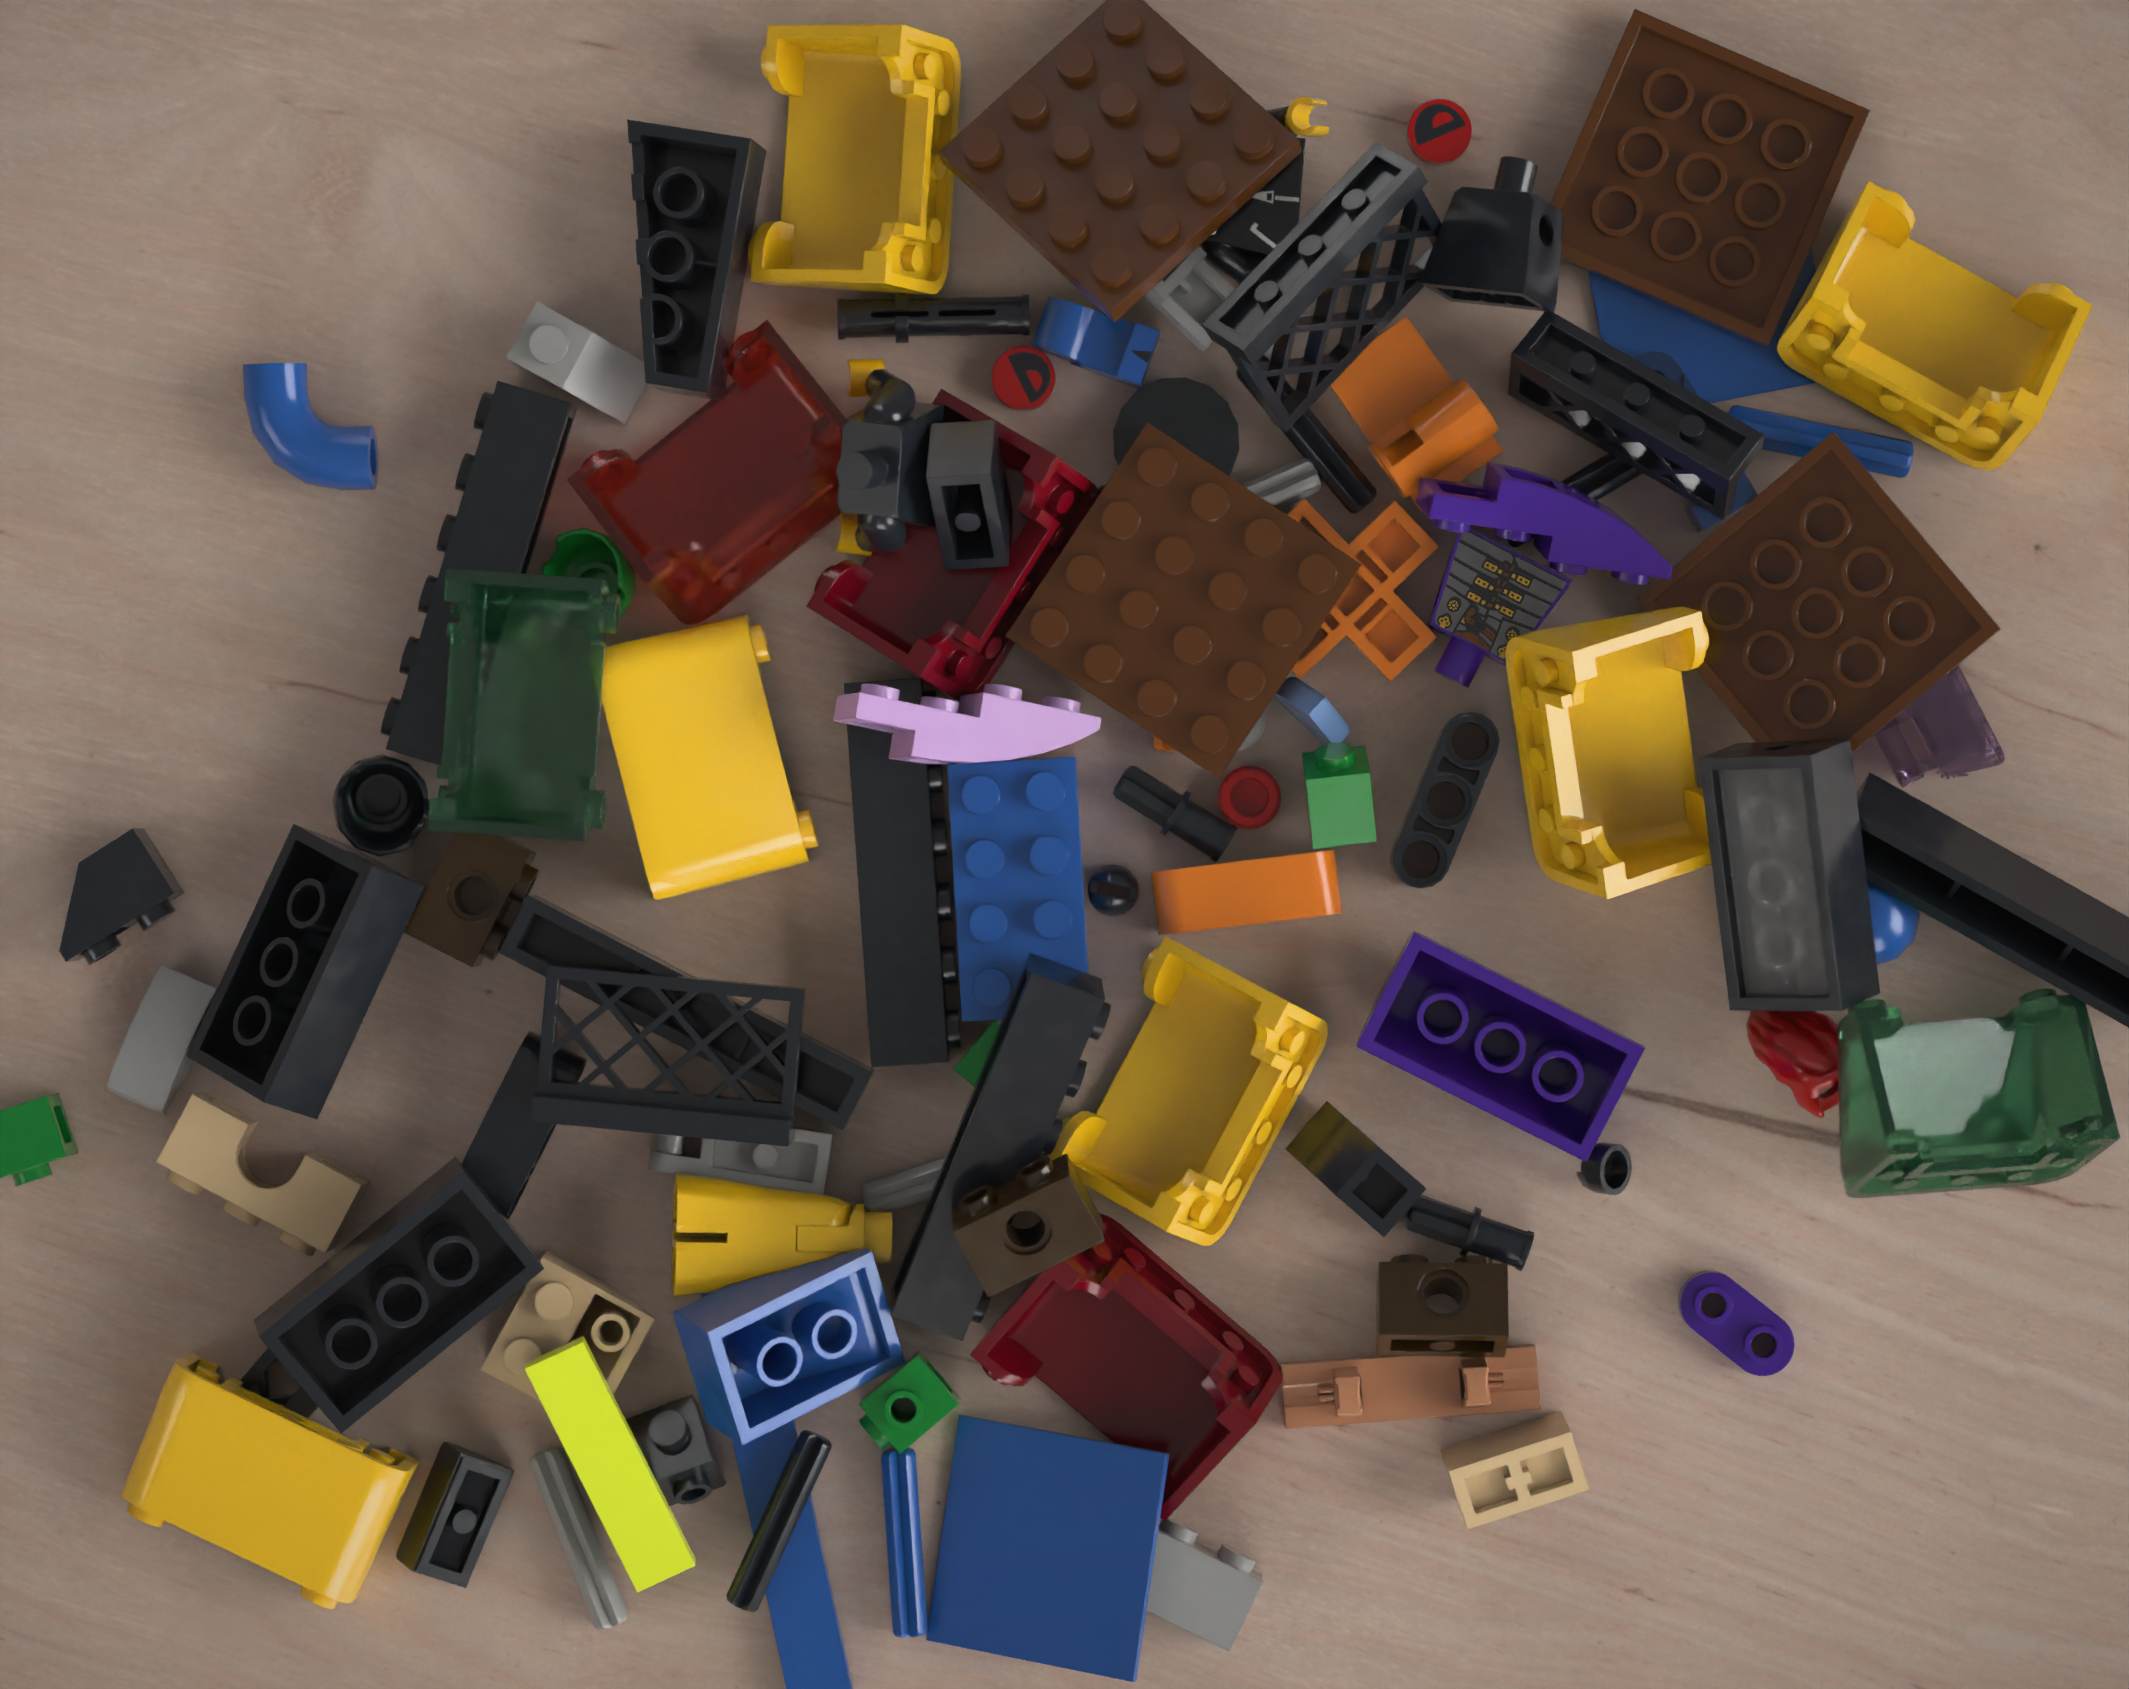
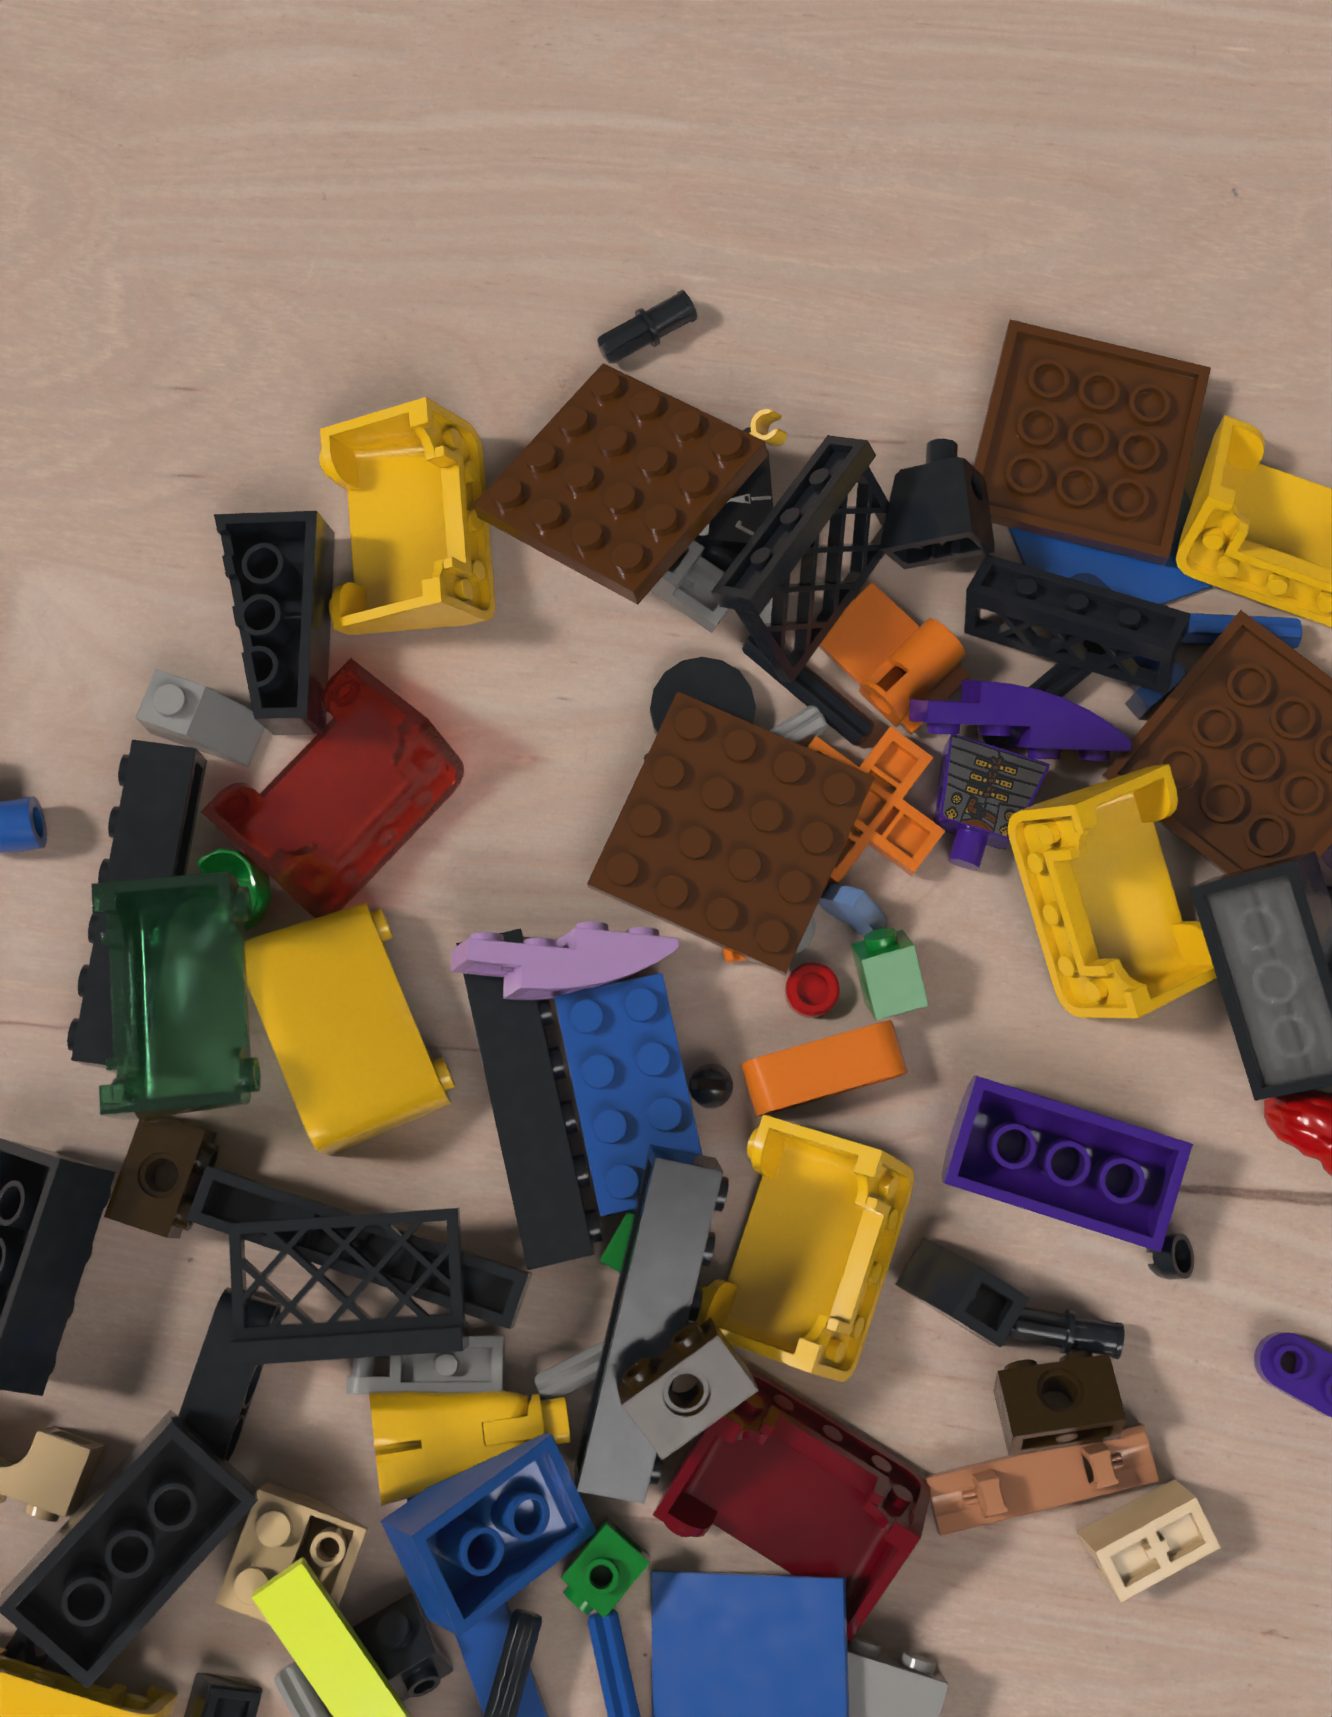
camera: 10 degrees left, 10 degrees down
(381, 805) = (69, 1111): black hair -> none
(883, 462) = (465, 755): black torso -> none
(932, 317) = (488, 640): black pin -> none
(956, 621) = (539, 818): dark red windscreen -> none
(969, 494) = (538, 768): black brick -> none
(1023, 378) = (570, 679): red tile -> none
(1096, 342) = (625, 639): blue leg -> none
(1174, 812) = (751, 1011): black axle -> none
(1439, 132) = (880, 433): red tile -> none
(1469, 779) = (993, 944): black beam -> none

